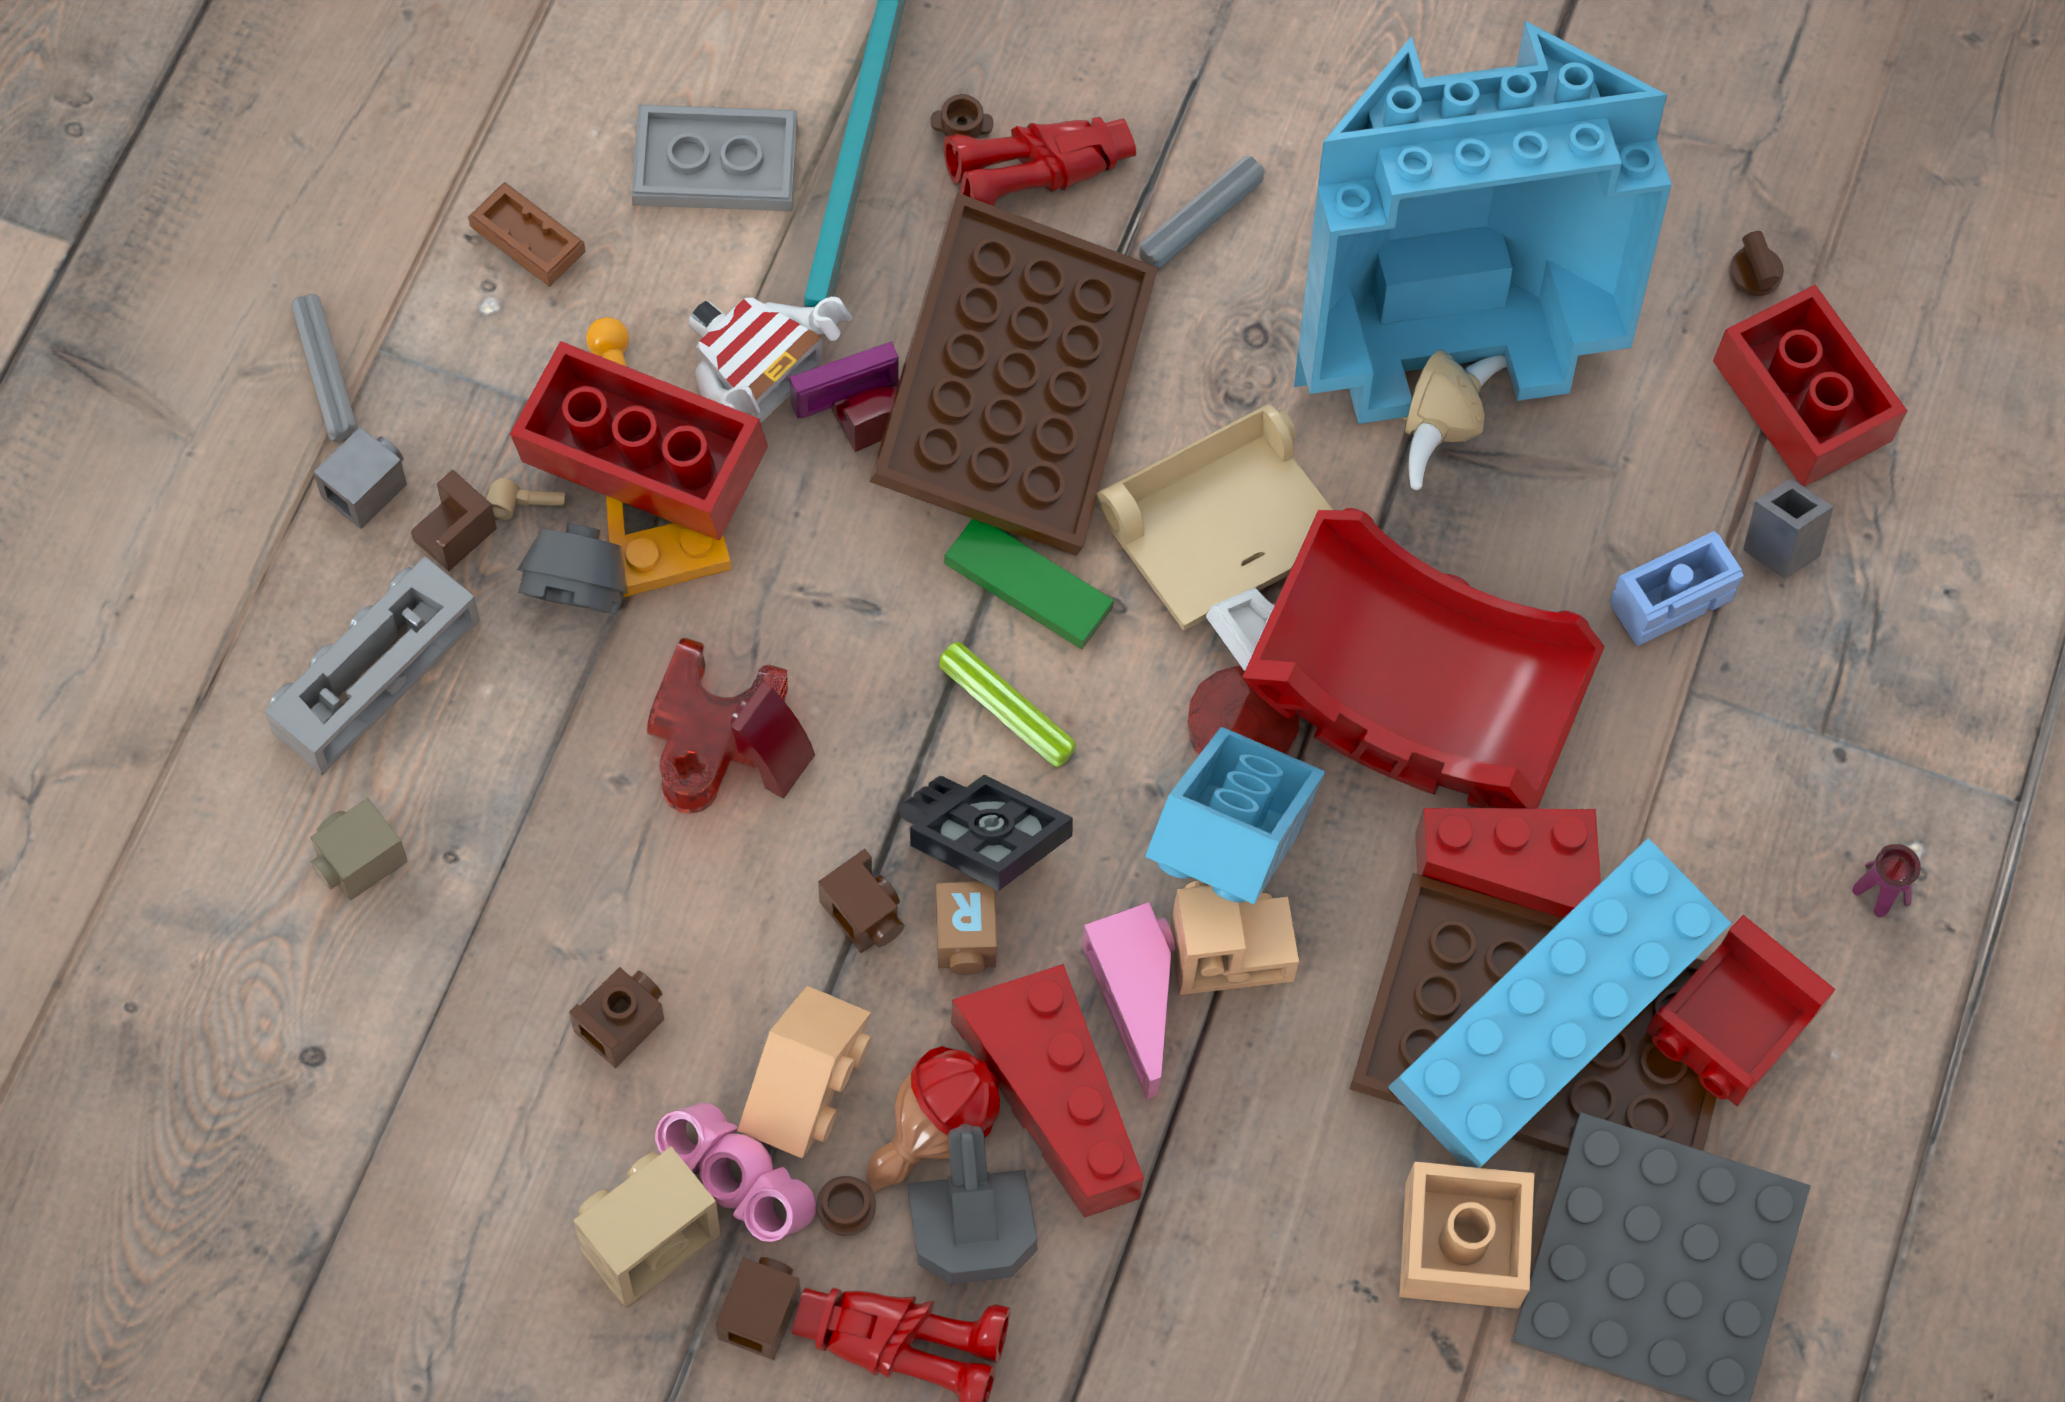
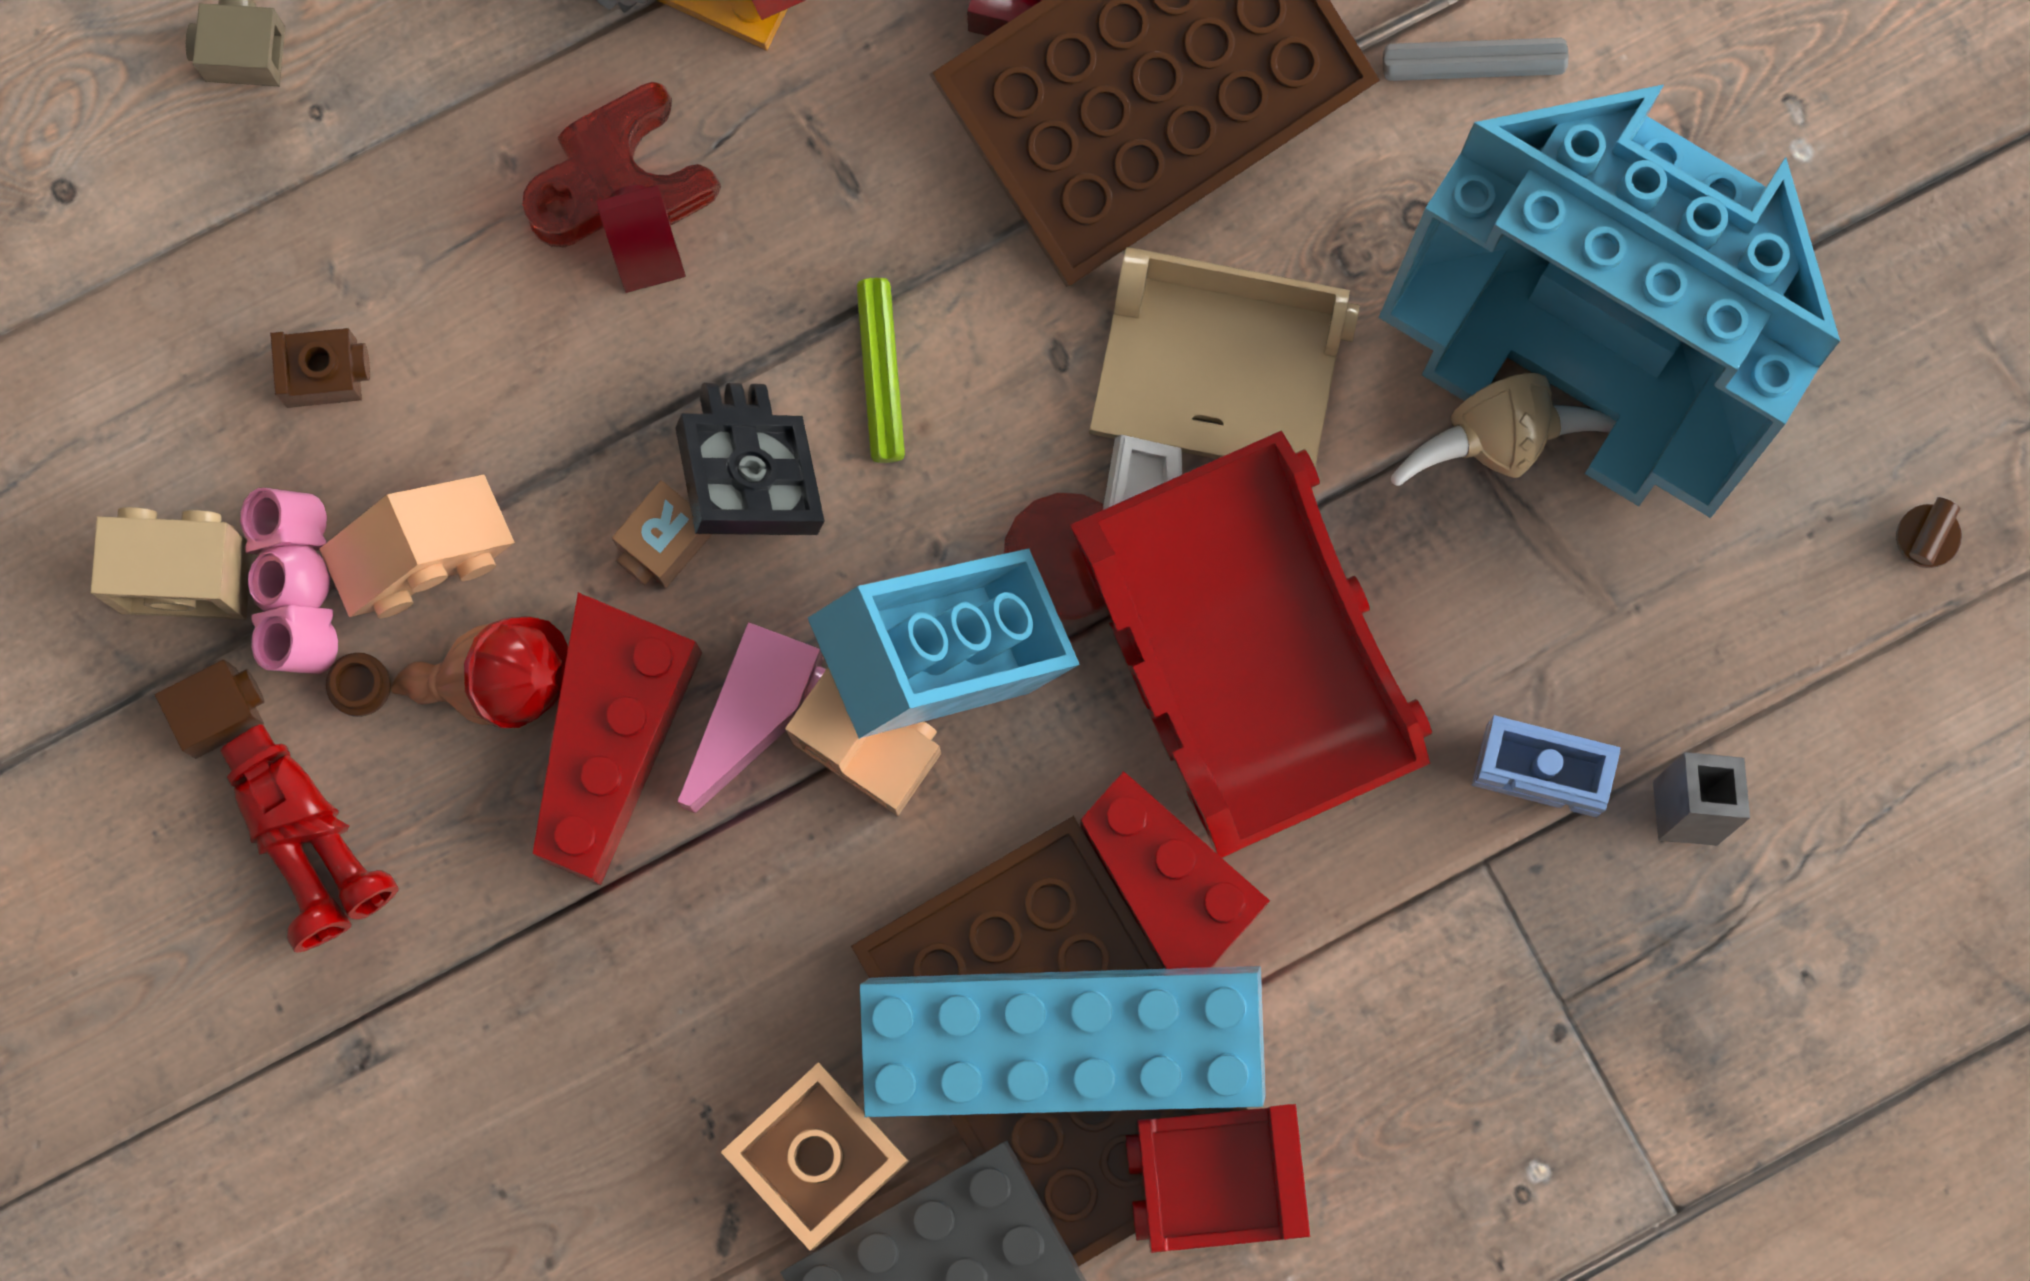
camera: 50 degrees right, 15 degrees up
(860, 903) = (596, 441): reddish brown brick -> none
(975, 1220) = (438, 789): dark grey piece -> none
(1029, 582) = (1001, 277): green tile -> none
(1809, 385) = (1856, 686): red brick -> none
(1894, 872) = (1482, 1179): piece -> none

